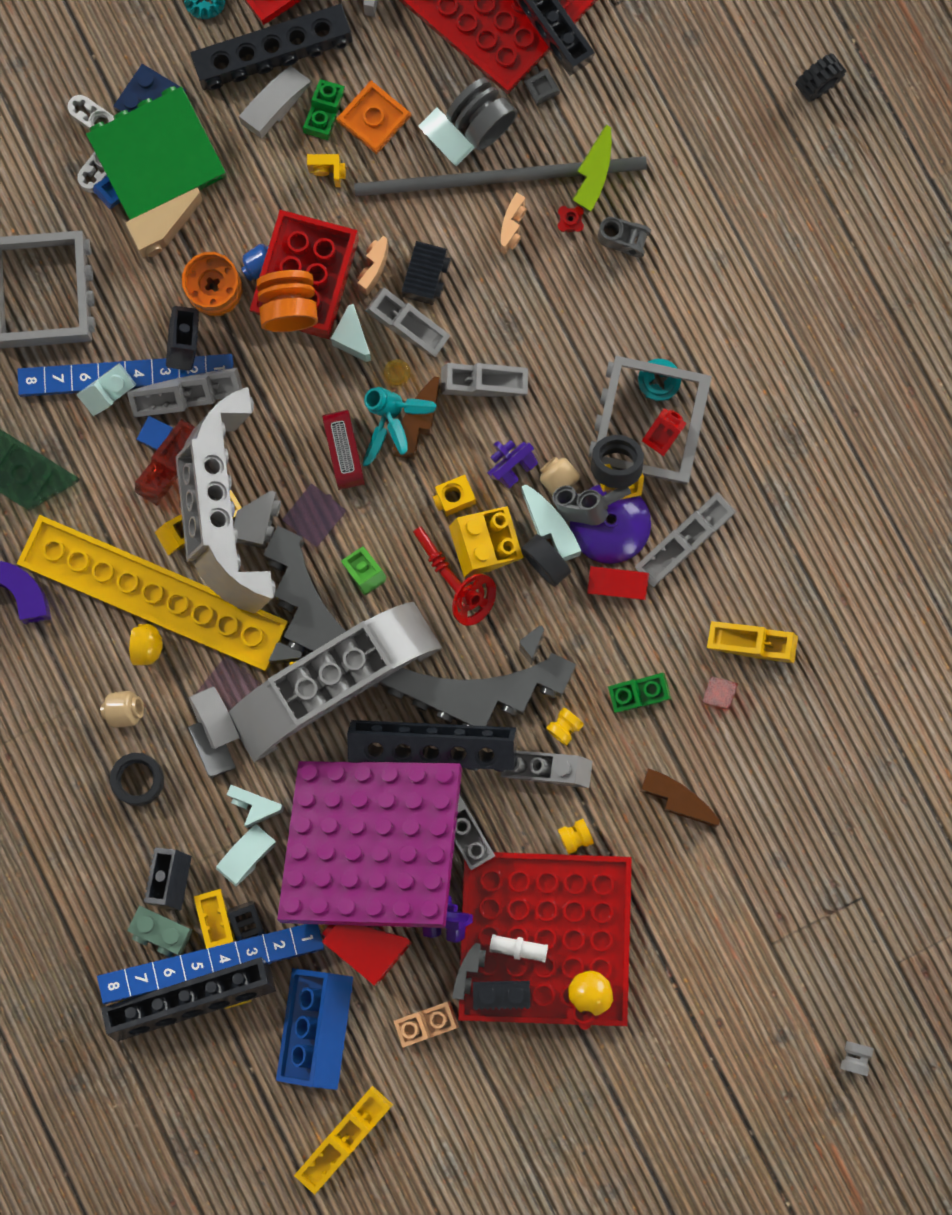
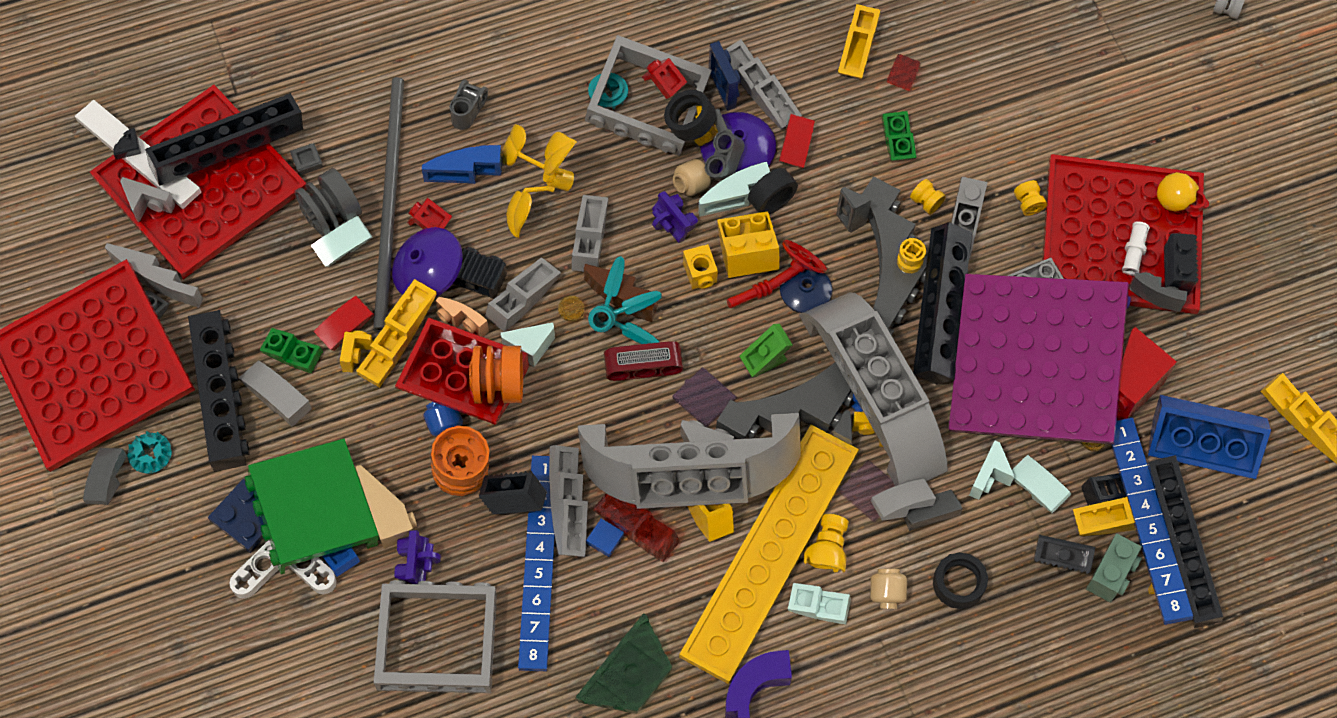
camera: 90 degrees left, 15 degrees down
(104, 644) = (819, 604): none -> light aqua slope
(106, 389) = (556, 580): light aqua slope -> none
(115, 261) = (419, 558): none -> dark purple hips
(176, 651) = (833, 528): none -> yellow wheel
(346, 205) = (397, 333): none -> yellow slope
(356, 153) = (347, 318): none -> red slope
(373, 117) = (307, 304): orange plate -> none
(426, 222) = (429, 257): none -> dark purple dish
(426, 1024) = (1200, 341): light nougat slope -> none
(440, 621) = (803, 299): none -> dark blue dish
(478, 711) = (908, 261): none -> yellow wheel
(483, 217) = (428, 215): none -> red bracket
(510, 229) = (444, 196): light nougat slope -> none
(544, 329) = (555, 177): none -> yellow plant
(549, 245) = (464, 165): none -> blue slope
(570, 226) = (437, 141): red plate -> none
(595, 170) = (400, 114): lime slope -> none
(678, 798) = (997, 113): reddish brown slope -> none
(690, 492) = (723, 76): none -> dark blue plate

